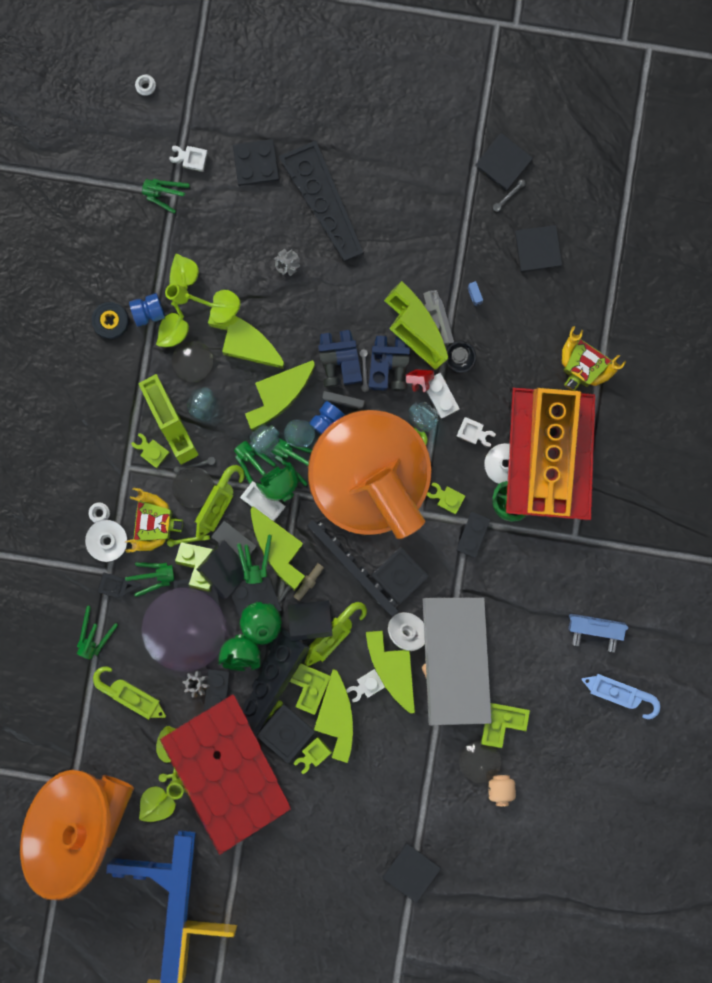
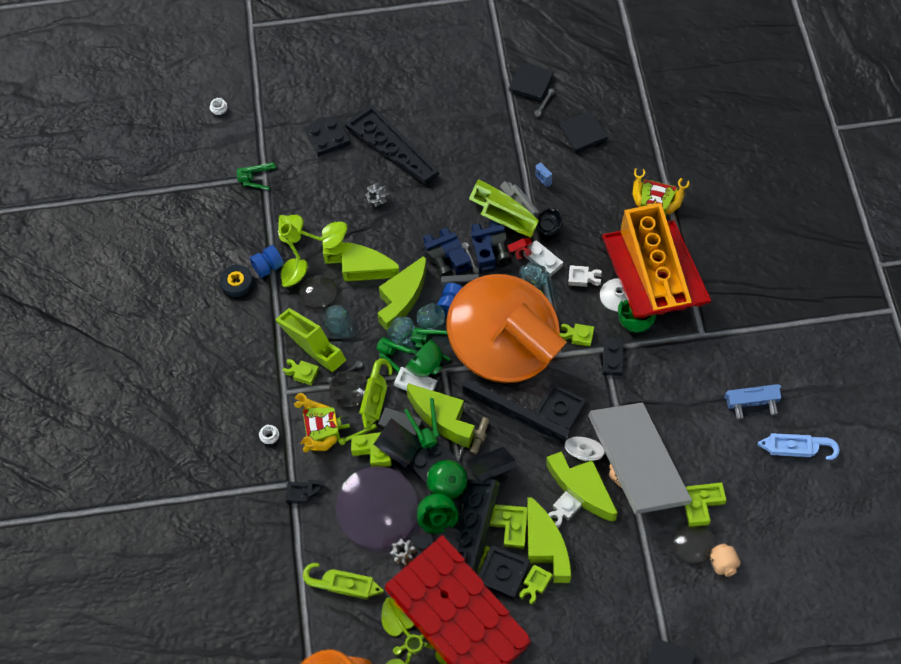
camera: 15 degrees left, 25 degrees down
(87, 647) = (290, 551): green plant -> none
(96, 536) = (278, 446): white dish -> none
(163, 574) = (344, 467): green plant -> none
(192, 159) = (272, 145): white plate -> none
(341, 627) = (515, 478): lime plate -> none

